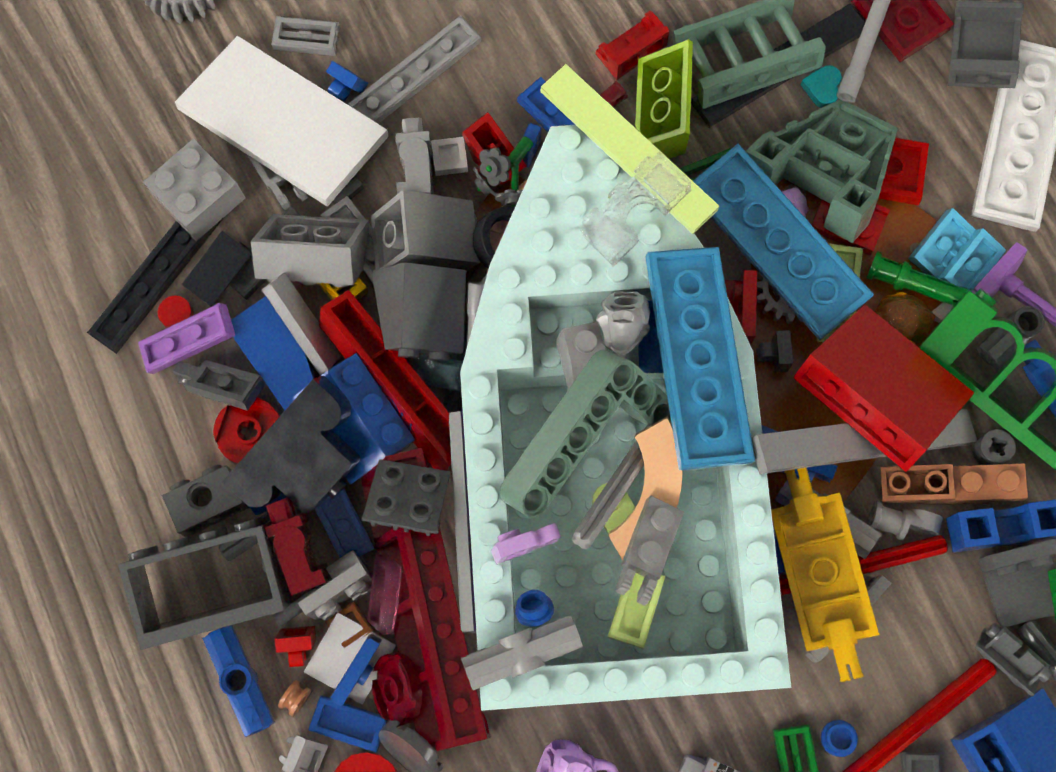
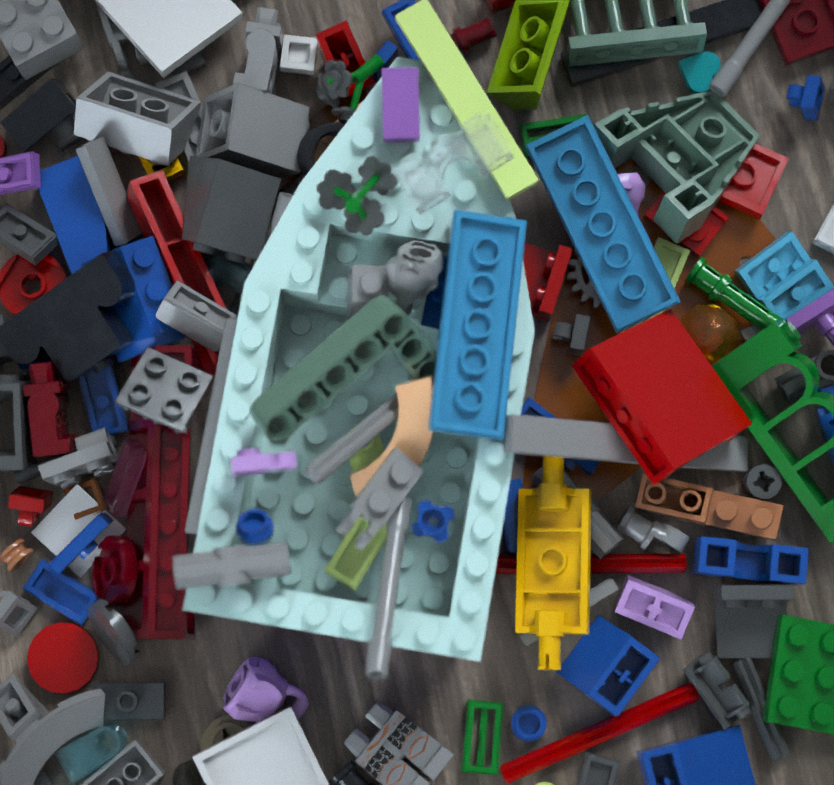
camera: 10 degrees right, 5 degrees up
(416, 419) = (194, 315): none -> light grey slope
(559, 278) = (360, 212): none -> dark grey plant
(568, 168) = (400, 105): none -> medium lavender tile
(691, 694) = (380, 643): none -> light grey piece
(700, 566) = (428, 511): none -> blue plate
(904, 662) = (608, 665): none -> blue slope
(929, 85) = (808, 97): none -> blue tile
(929, 592) = (654, 606): none -> lavender hinge

